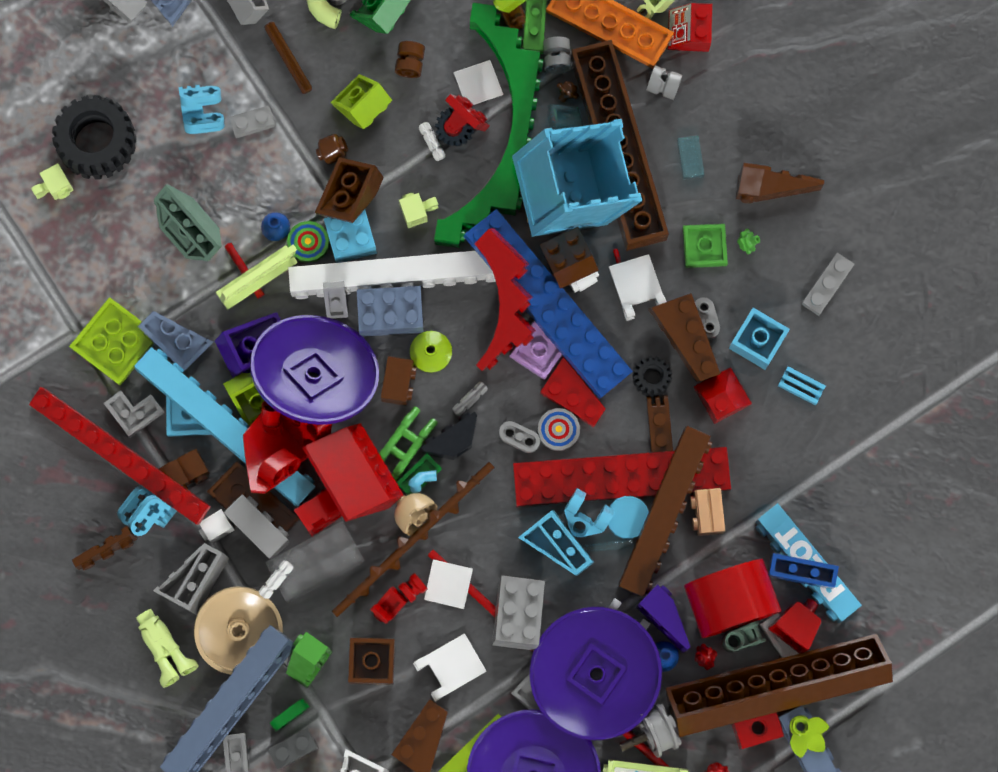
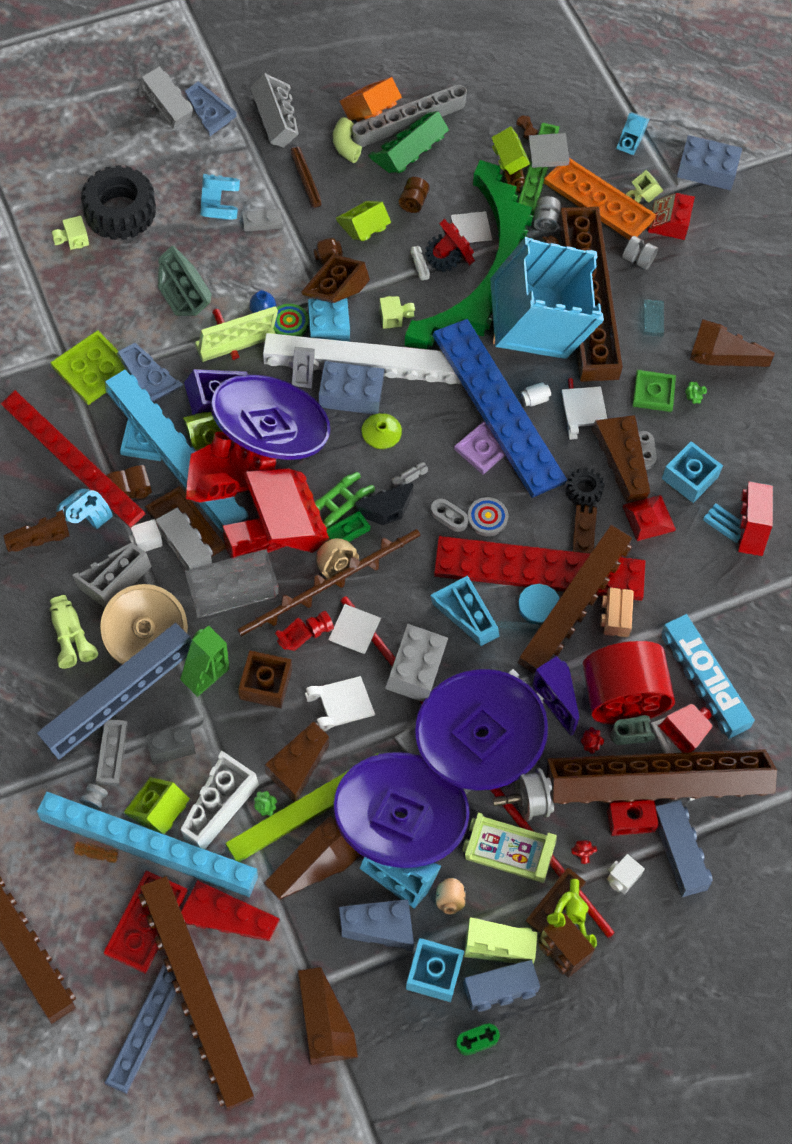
camera: 10 degrees right, 15 degrees down
(133, 418) = (94, 432): light grey plate -> none
(276, 579) = (191, 584): white axle -> none
(289, 715) = (174, 714): green beam -> none
(397, 381) = (345, 446): reddish brown brick -> none
(421, 477) = (349, 528): medium azure arm -> none
(511, 326) = (467, 391): red arch -> none
(569, 257) = (526, 371): reddish brown brick -> none
(573, 394) = (505, 486): red wing -> none
(573, 516) = (513, 595): medium azure piece -> none
(668, 654) = (556, 734): blue brick -> none
(803, 571) = (701, 672): blue brick -> none
(809, 737) = (684, 829): lime plate -> none
(827, 284) = (764, 443): light grey plate -> none
(832, 376) = (756, 518): none -> red wedge

